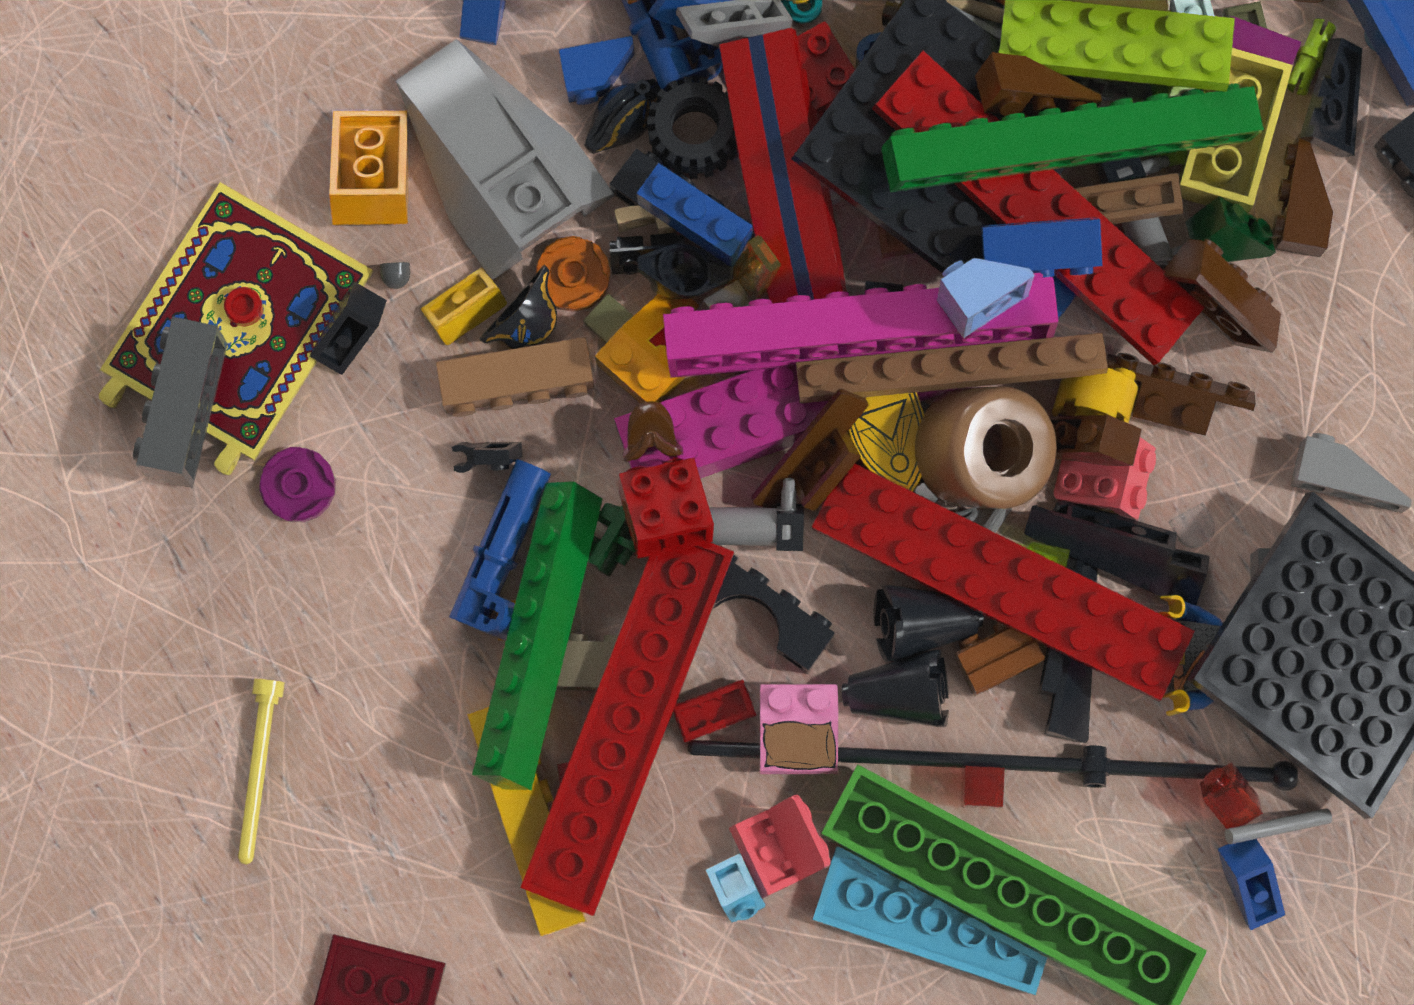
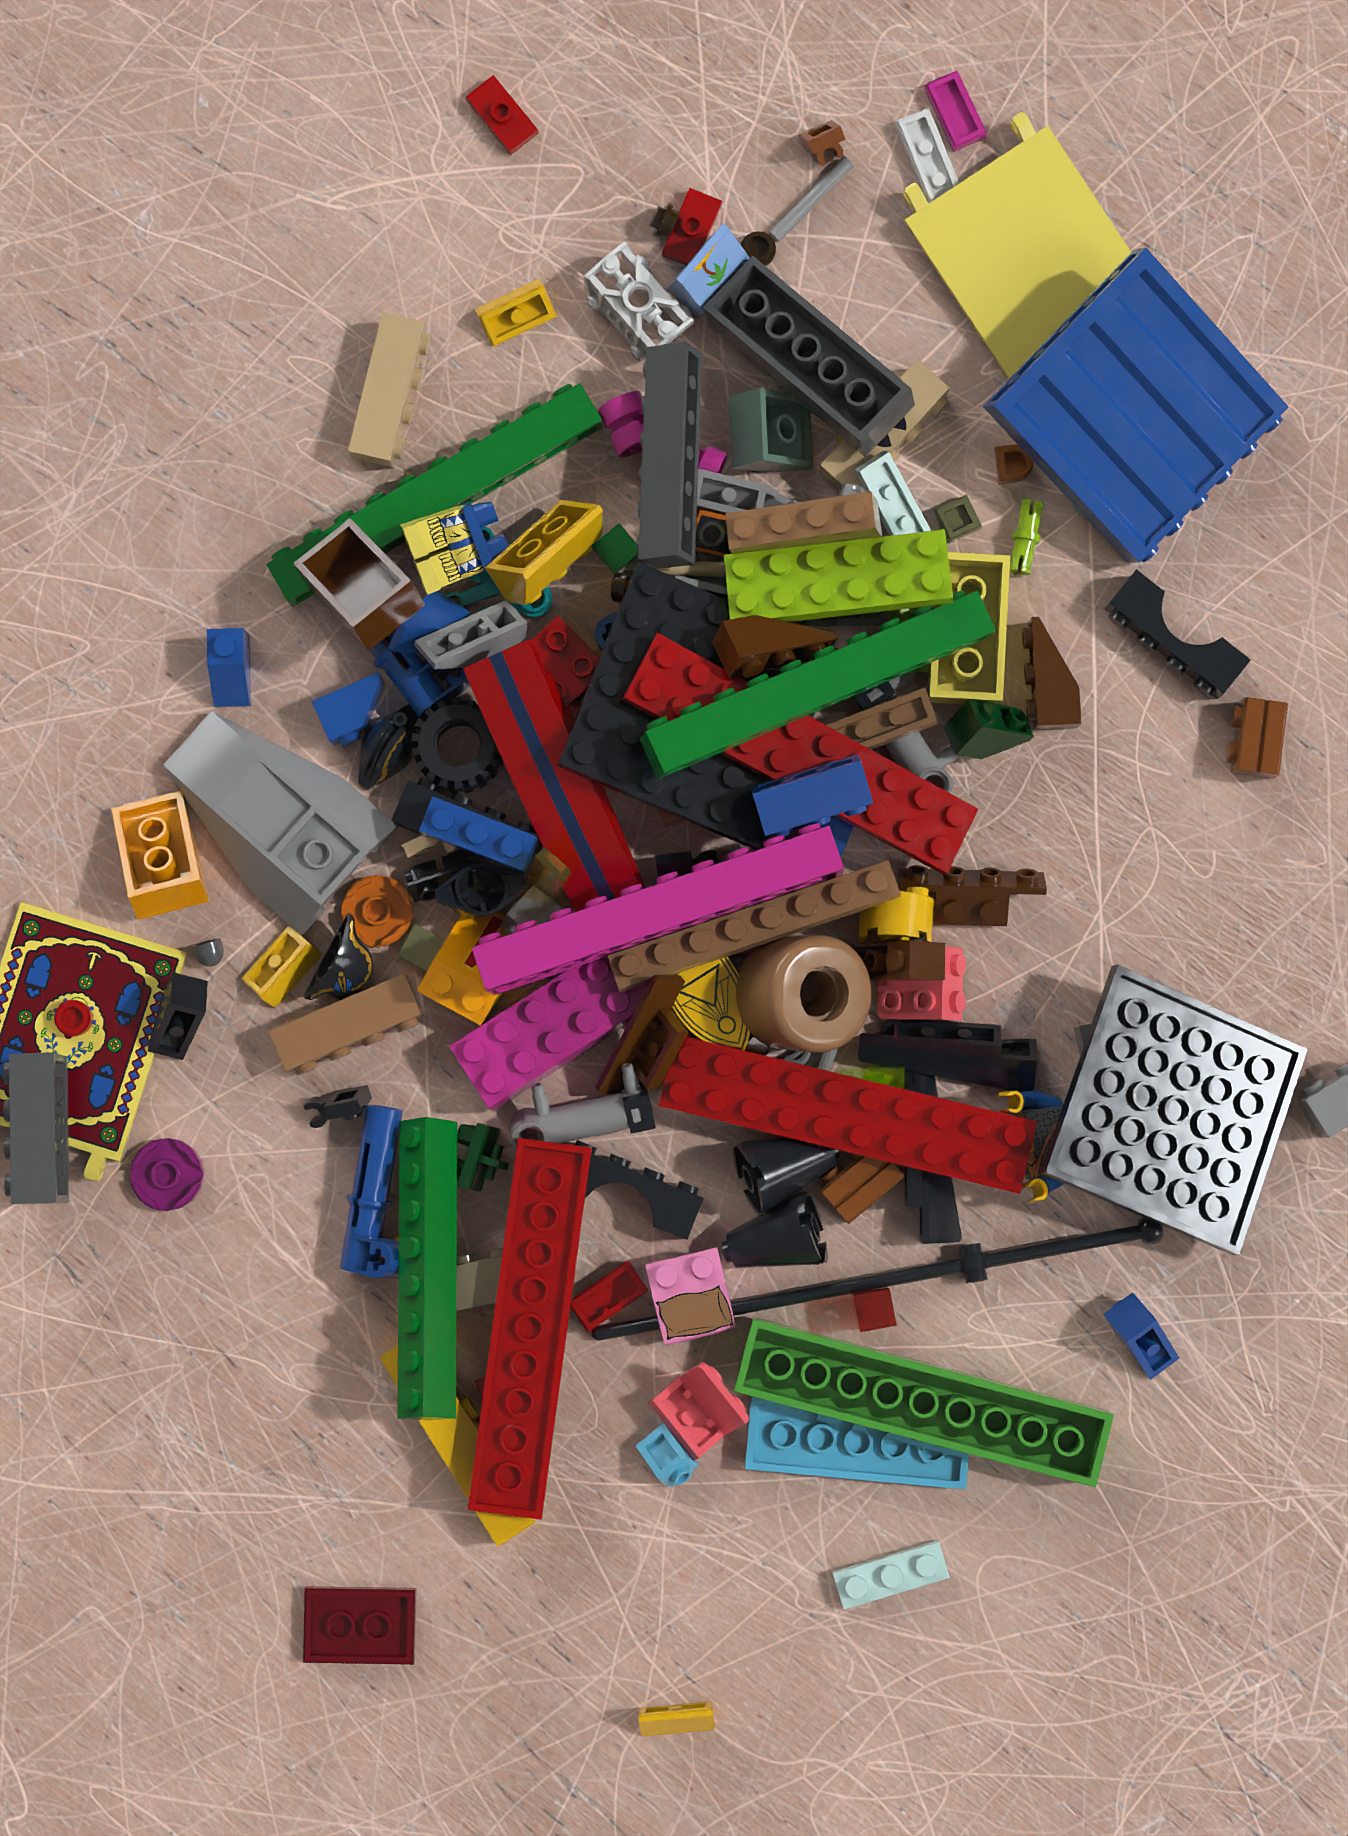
camera: 10 degrees left, 5 degrees up
(267, 695) = (188, 1380): light yellow piece -> none
(650, 427) = (487, 1052): reddish brown piece -> none
(665, 507) = (517, 1124): red brick -> none
(981, 291) = (764, 862): light blue slope -> none
(1228, 299) = (996, 792): reddish brown slope -> none
(1230, 796) = (1105, 1264): clear red brick -> none
(1264, 42) = (977, 536): magenta tile -> none
(1278, 826) = (1154, 1280): light grey bar -> none
(1335, 100) = (1058, 577): black wing -> none
(1341, 473) = (1138, 932): light grey slope -> none

